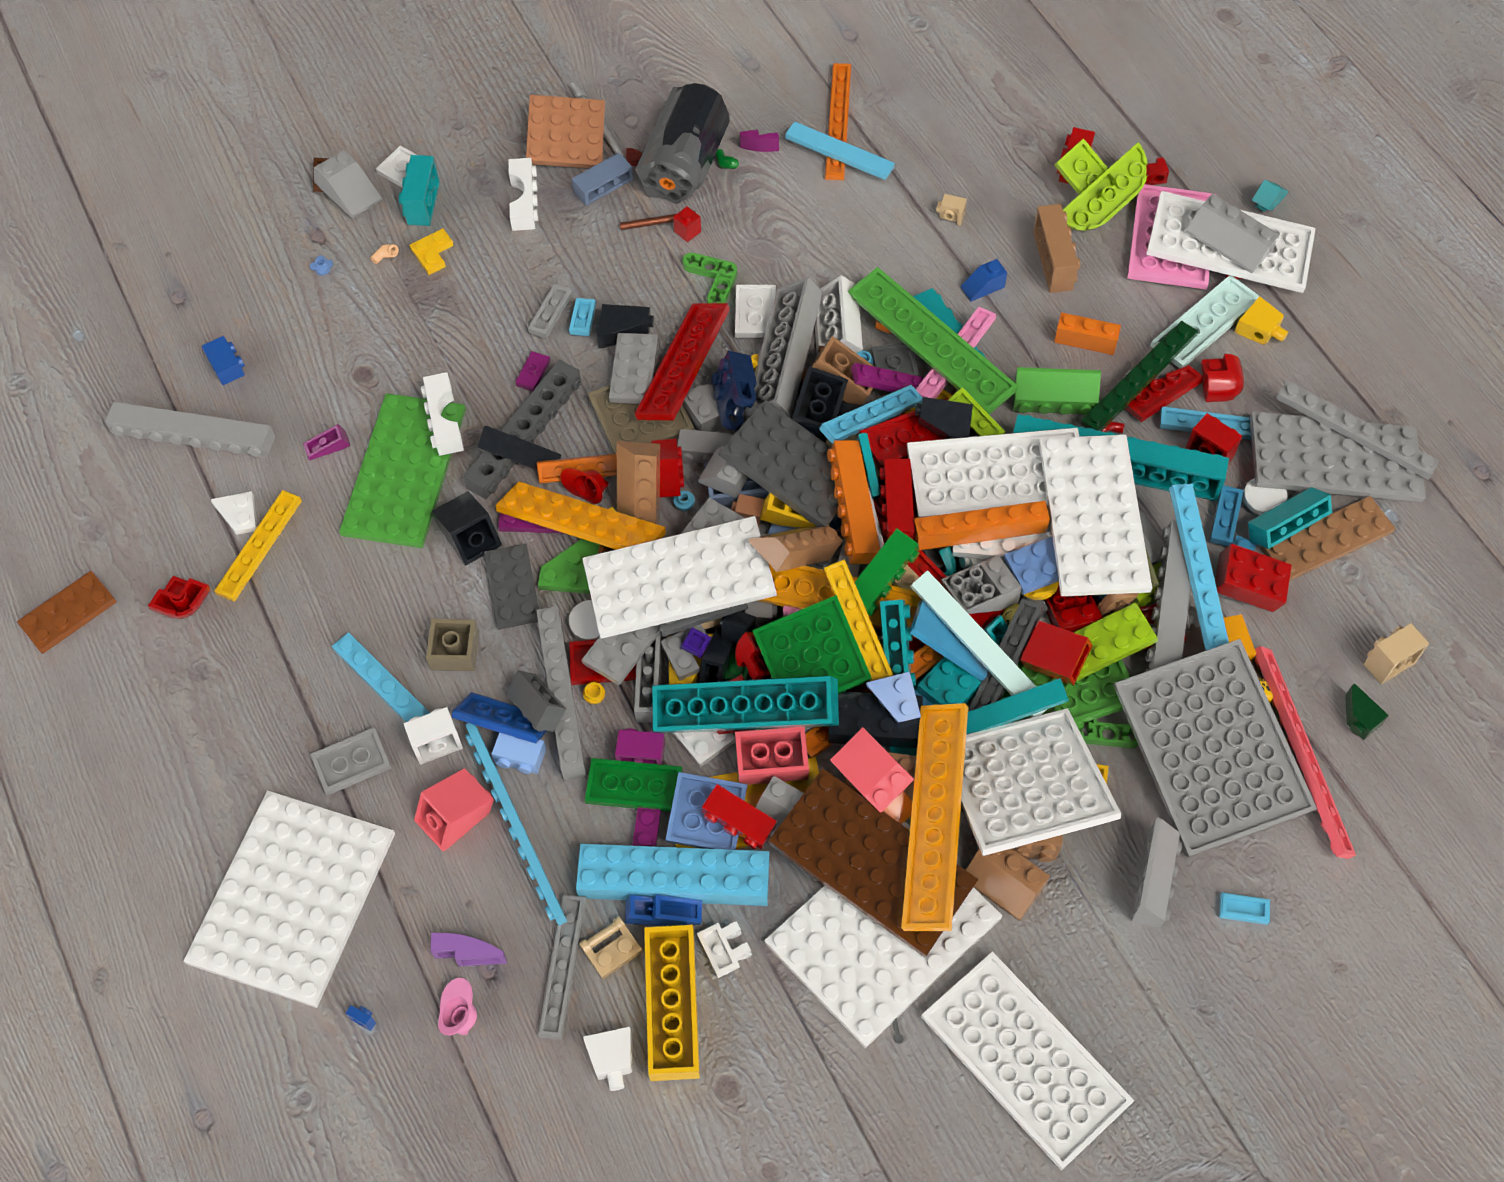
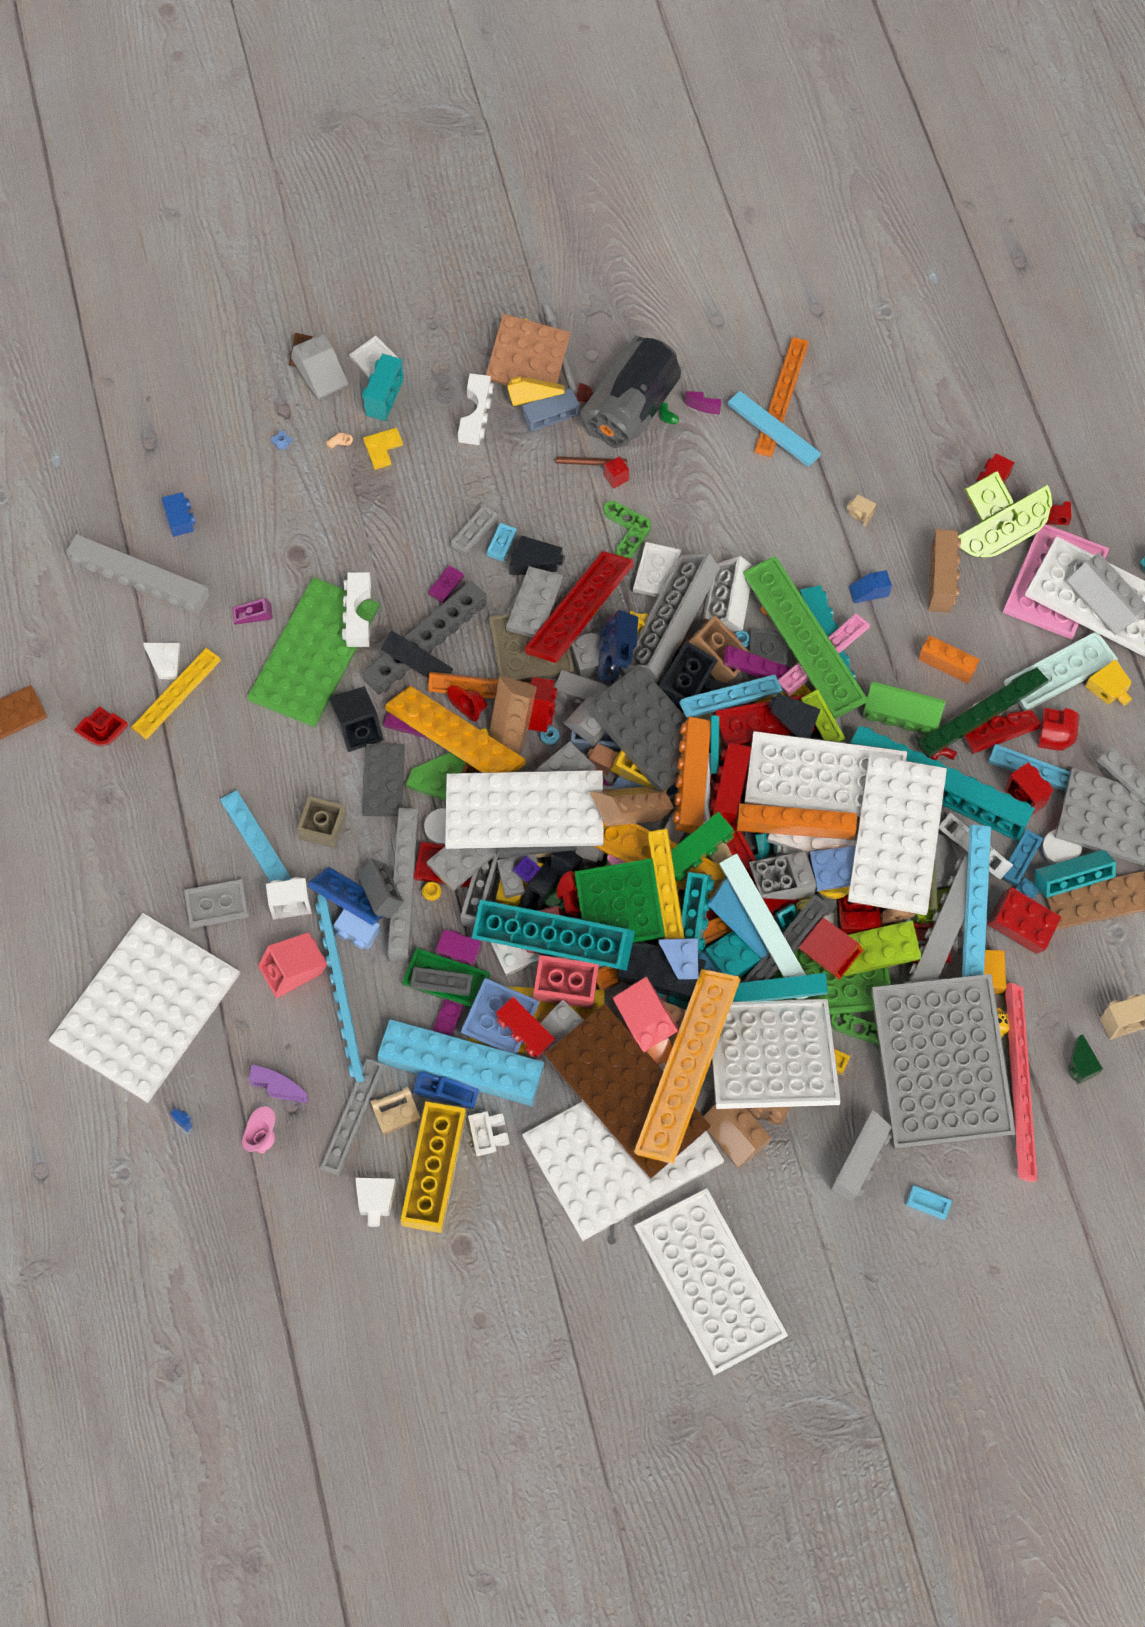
camera: 10 degrees right, 5 degrees up
(575, 162) = (529, 389): none -> yellow slope
(629, 788) = (441, 981): none -> dark grey plate
(1161, 506) = (959, 833): none -> white arch

